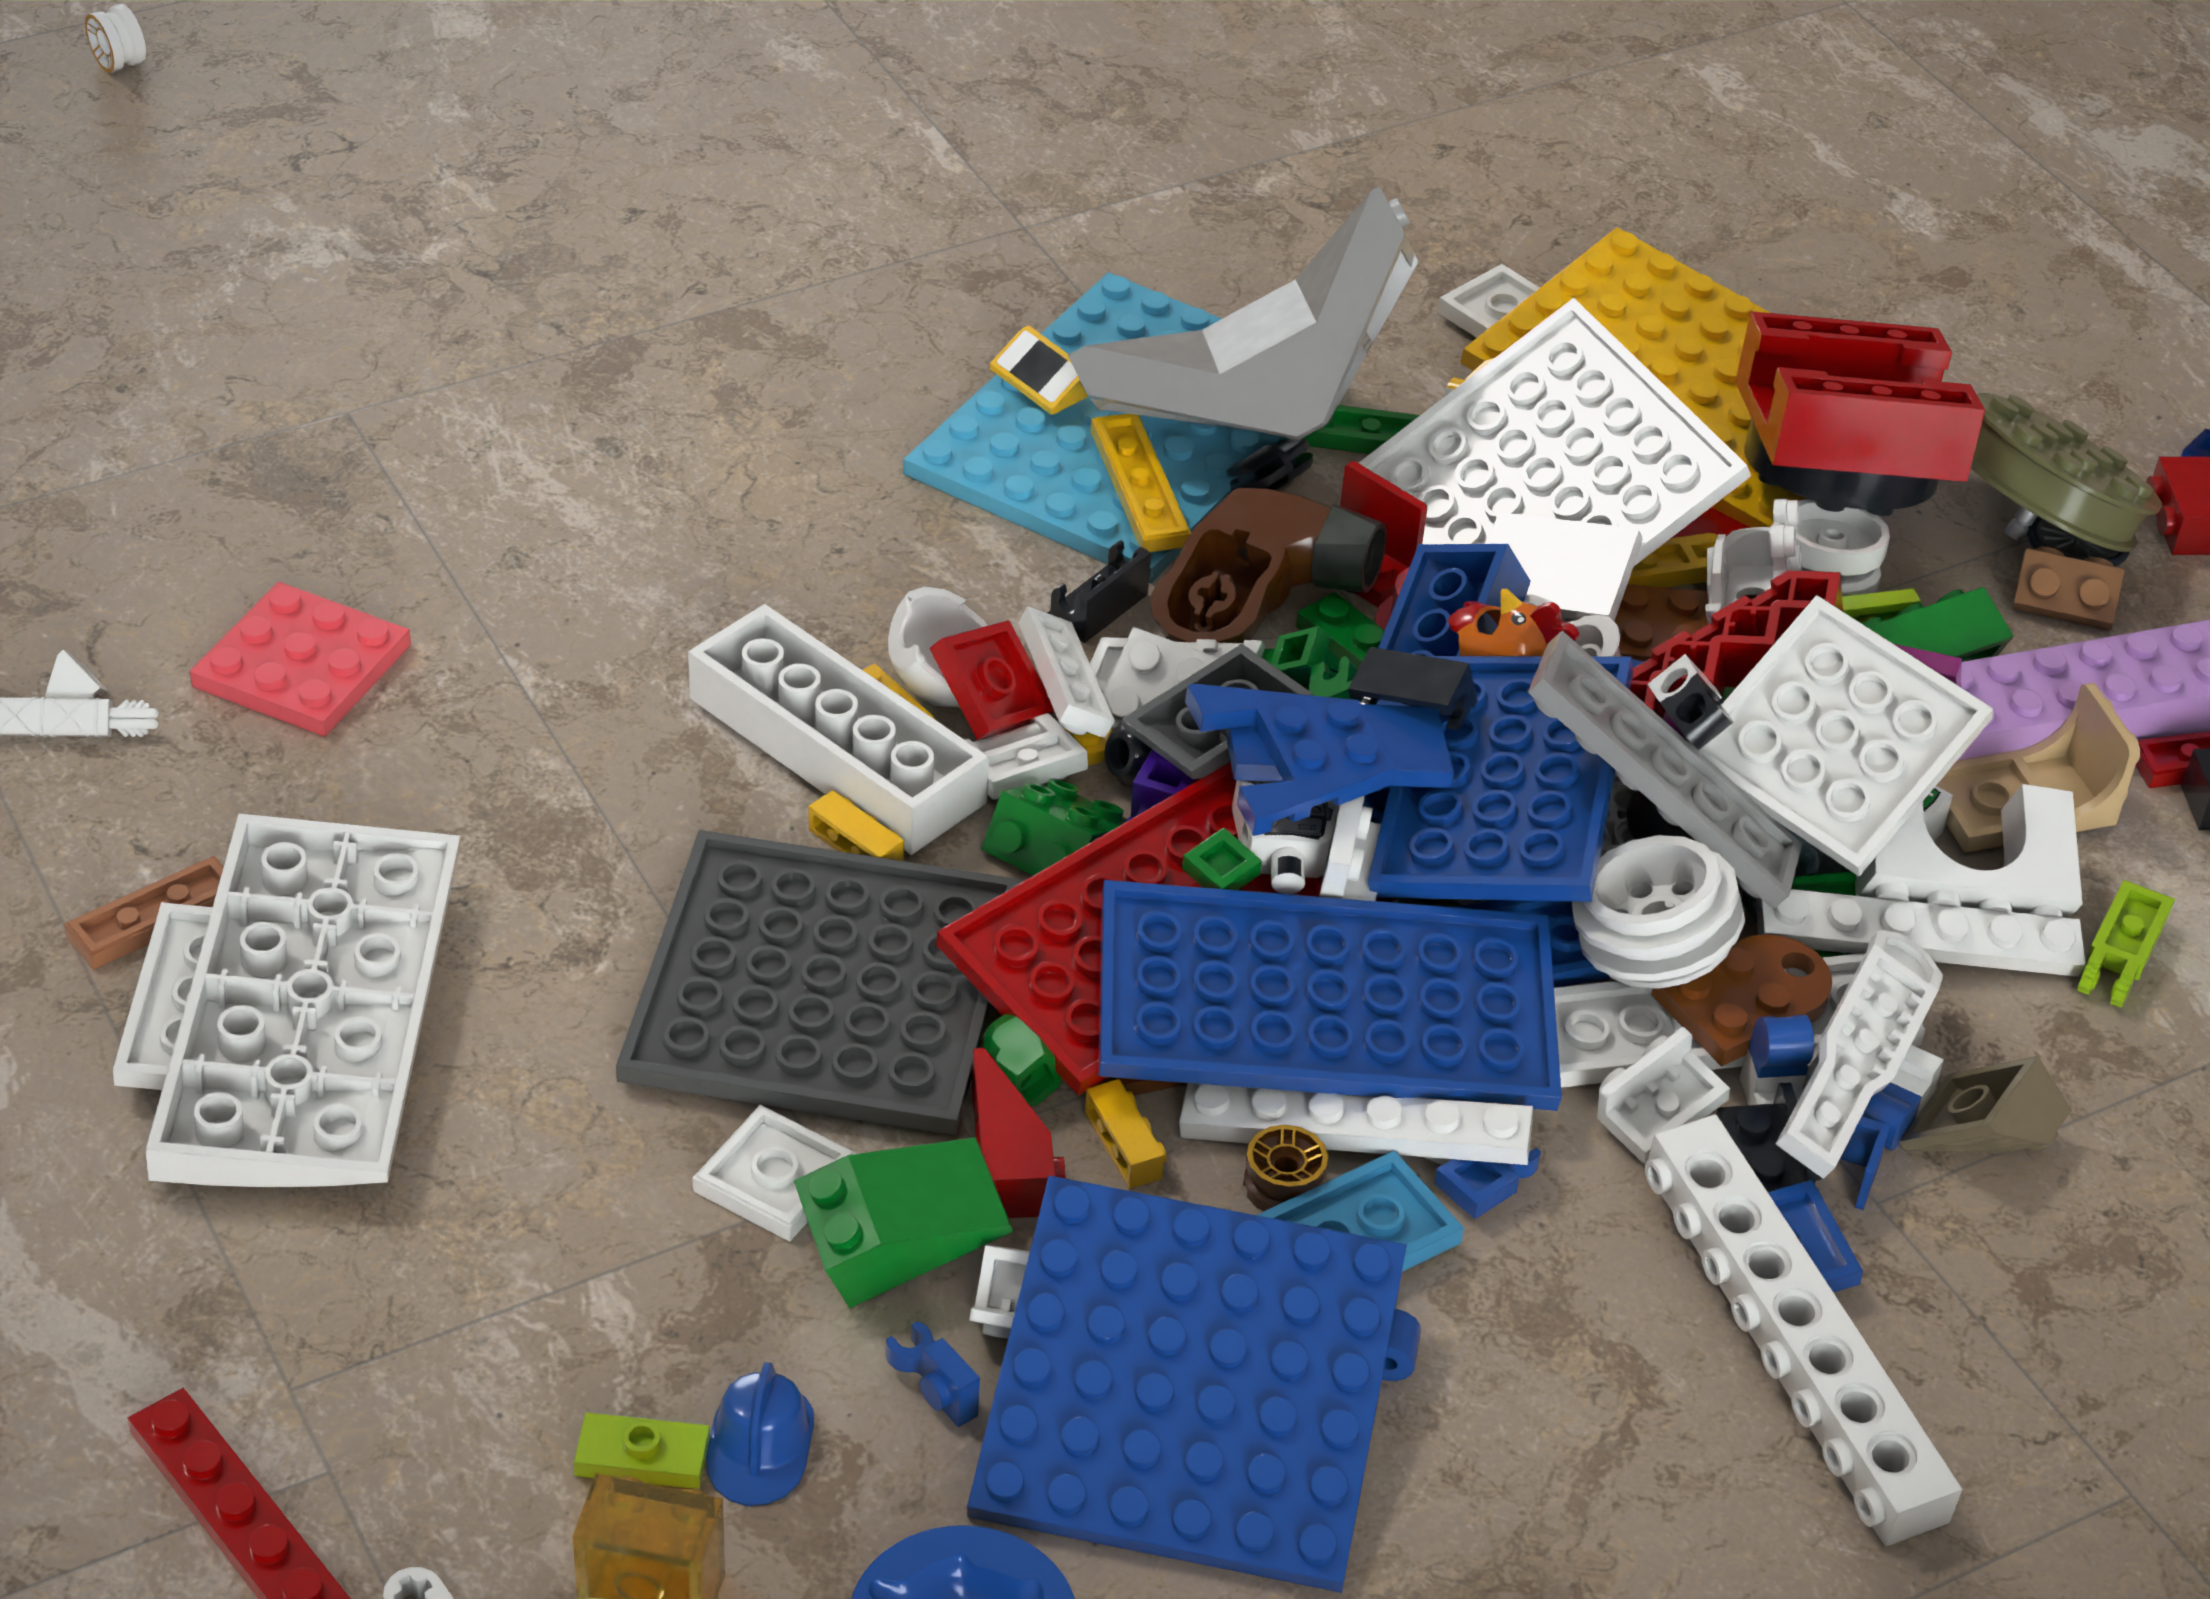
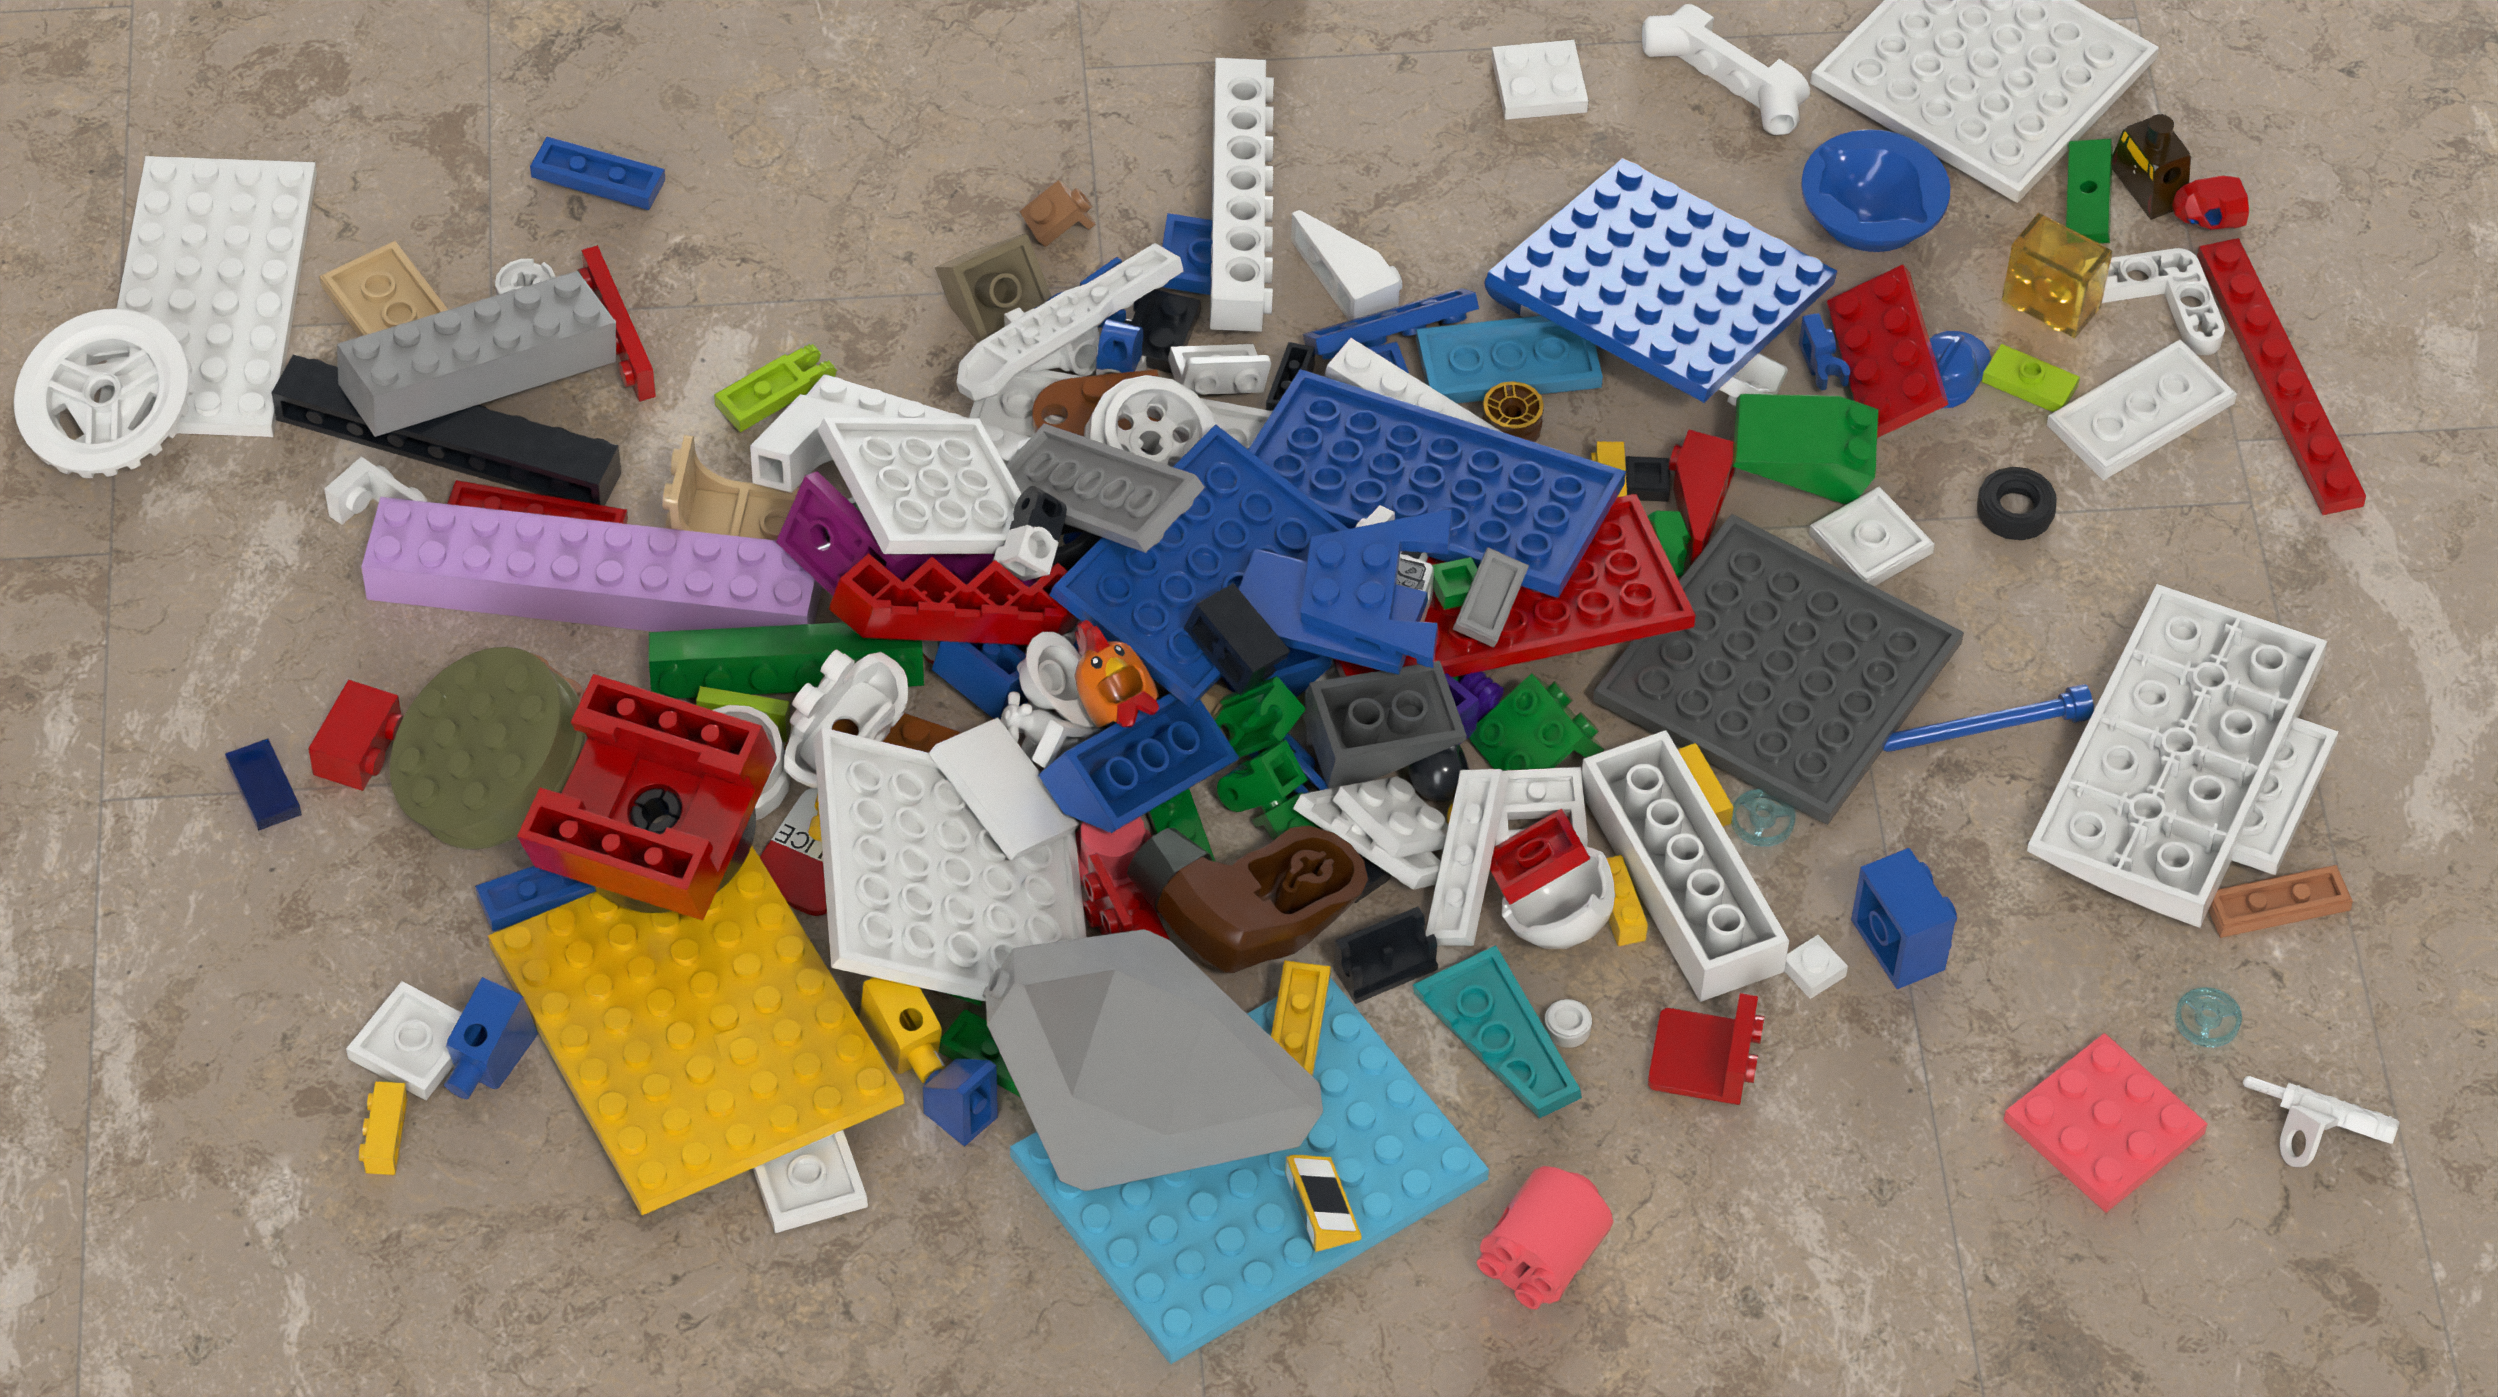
camera: 155 degrees left, 10 degrees up
(207, 767) = (2205, 1022): none -> clear light blue piece
(454, 1039) = (2073, 705): none -> blue piece
(472, 1463) = (2141, 409): none -> white tile
(575, 727) = (1903, 917): none -> blue brick
(608, 1298) = (2010, 524): none -> black tyre
(659, 711) = (1814, 966): none -> white plate
(730, 592) = (1706, 1052): none -> red bracket
(778, 821) = (1748, 800): none -> clear light blue piece
(819, 393) = (1545, 1235): none -> coral cylinder
(849, 1389) = (1888, 349): none -> red plate
(884, 597) = (1568, 1023): none -> white tile
(910, 546) = (1498, 1024): none -> teal wing
(1088, 1157) = (1648, 478): none -> black tile
(1173, 841) = (1490, 597): none -> light grey tile
(1412, 367) = (962, 1098): none -> blue slope
(1500, 1236) = (1373, 328): none -> blue plate
(1573, 1129) = (1295, 358): none -> black piece
(1602, 1286) = (1347, 269): none -> white slope
(1848, 293) = (488, 1038): none -> blue torso
(1875, 260) = (383, 1128): none -> yellow piece
(1913, 305) = (407, 1040): none -> white plate
(1991, 1250) = (1056, 212): none -> medium nougat bracket

